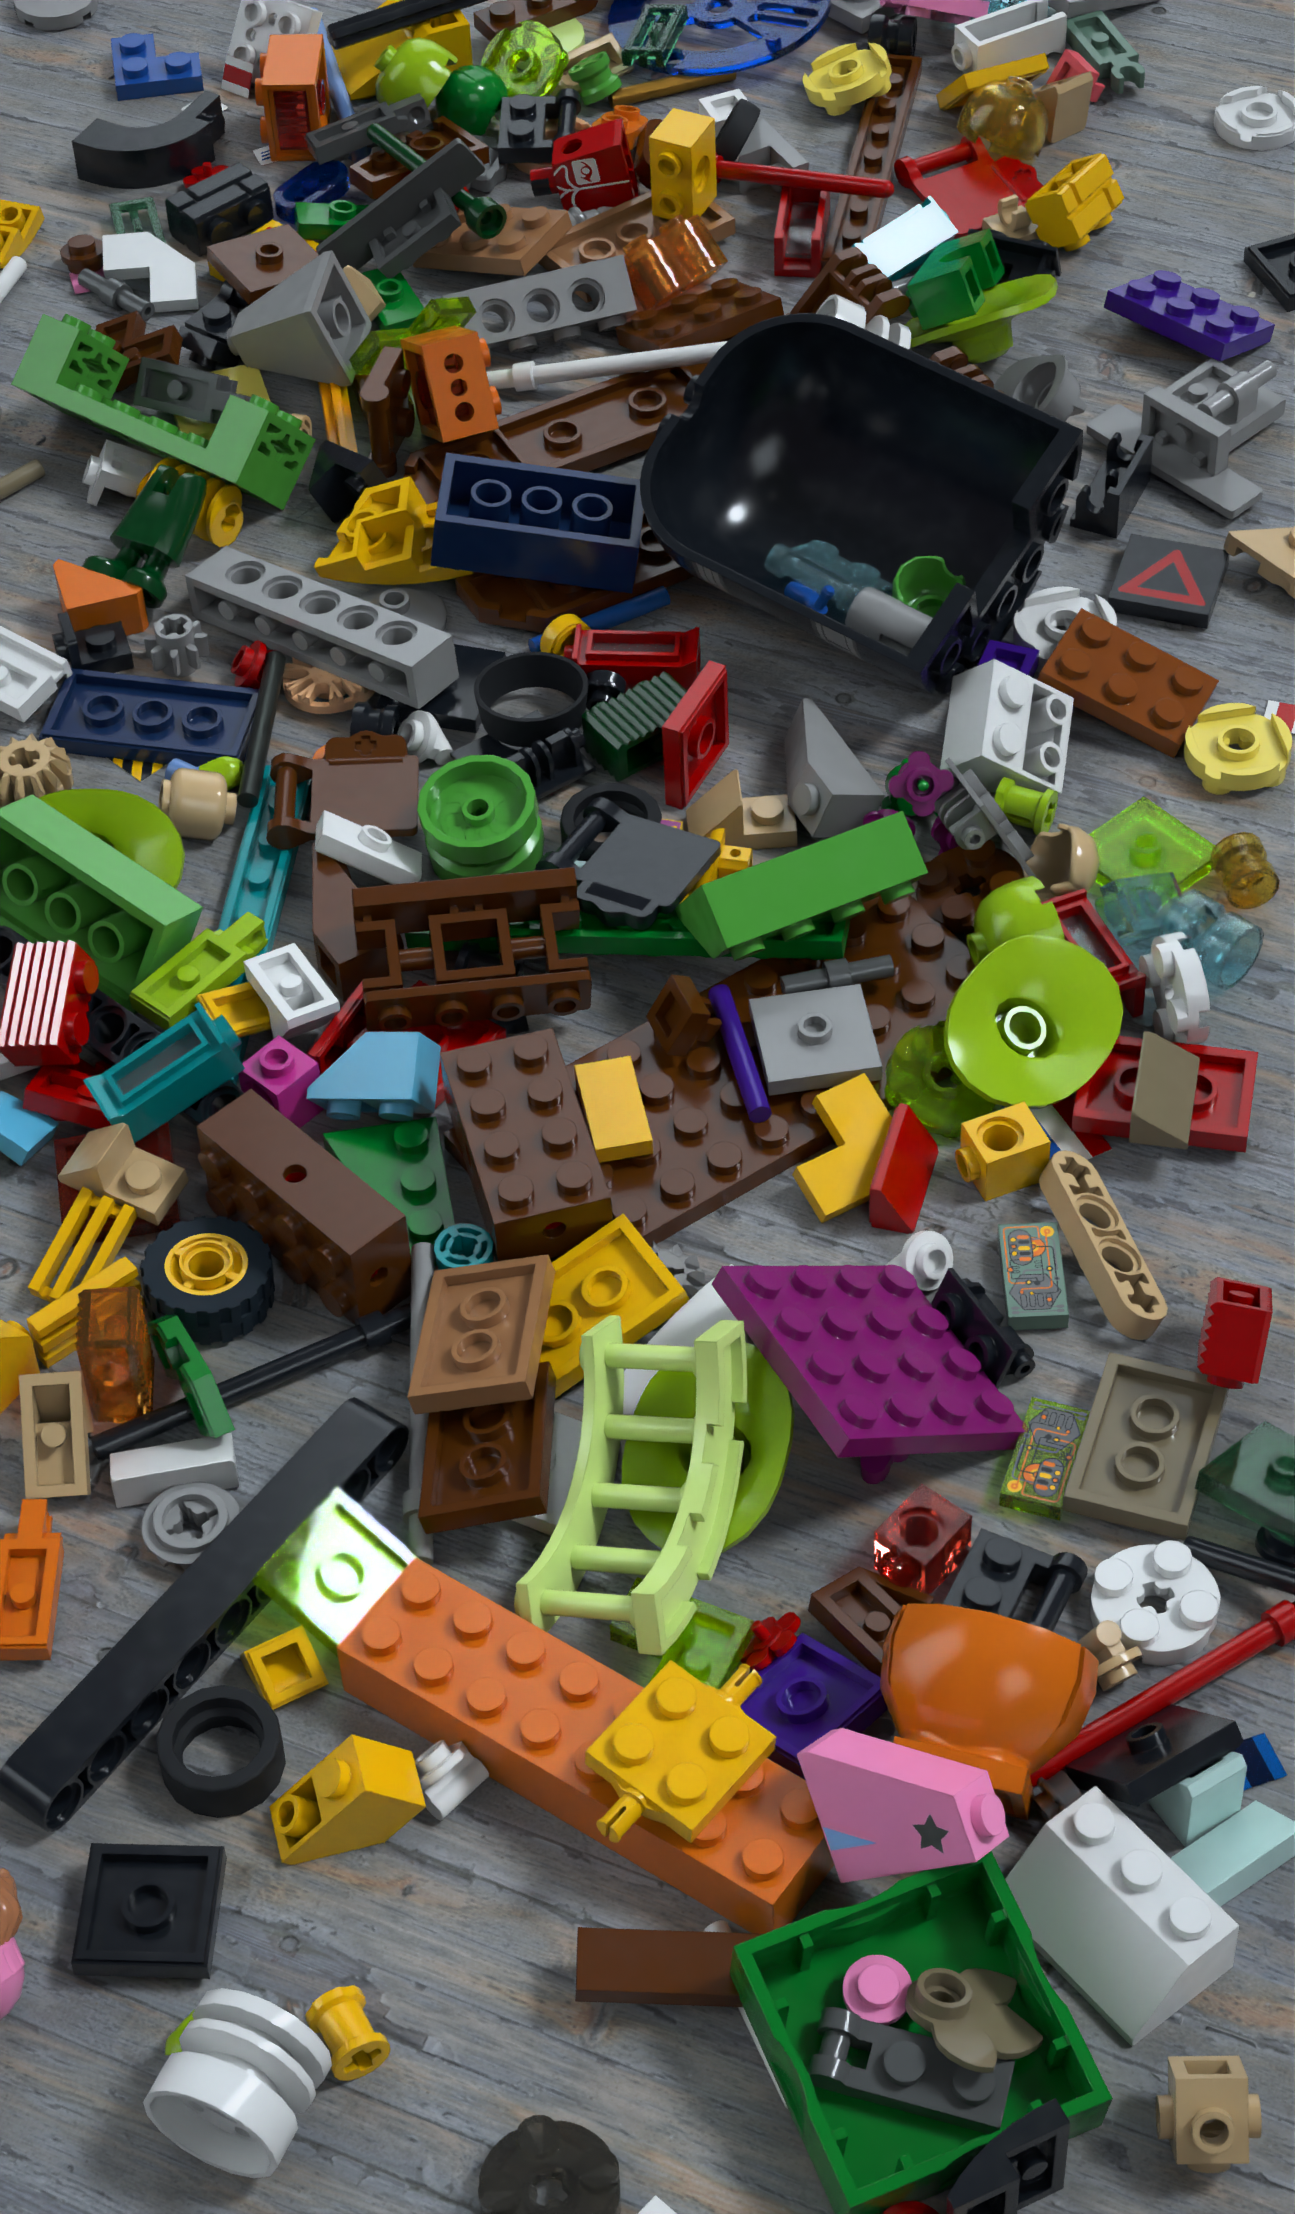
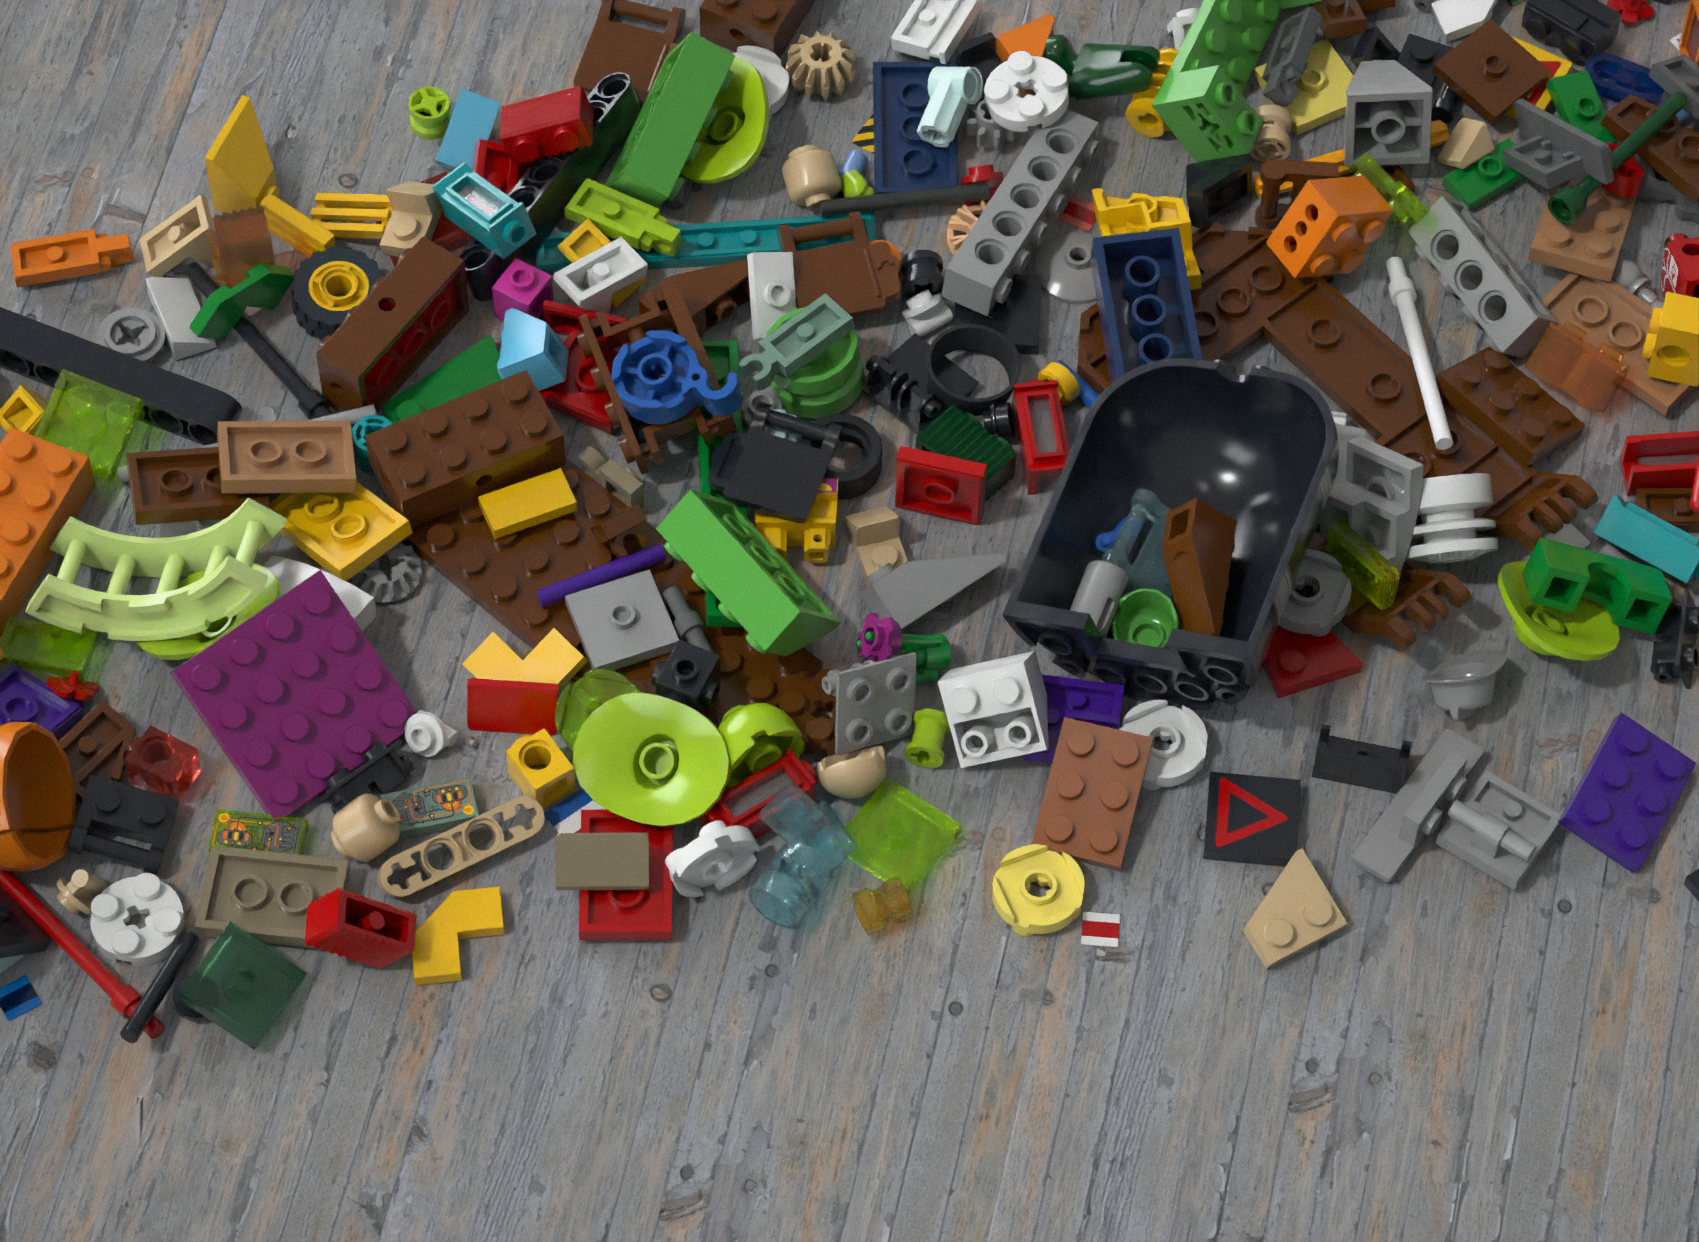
camera: 75 degrees right, 10 degrees up
(137, 656) = (949, 94): none -> light aqua piece
(164, 562) = (1024, 73): none -> white plate
(480, 795) = (798, 341): none -> sand green plate
(516, 891) = (679, 390): none -> blue piece
(596, 1027) = (618, 481): none -> dark tan plate
(887, 529) = (1198, 563): none -> reddish brown slope
(927, 970) = (689, 676): none -> black brick
(1067, 1324) = (365, 828): none -> tan head
(1197, 1255) = (460, 916): none -> yellow tile

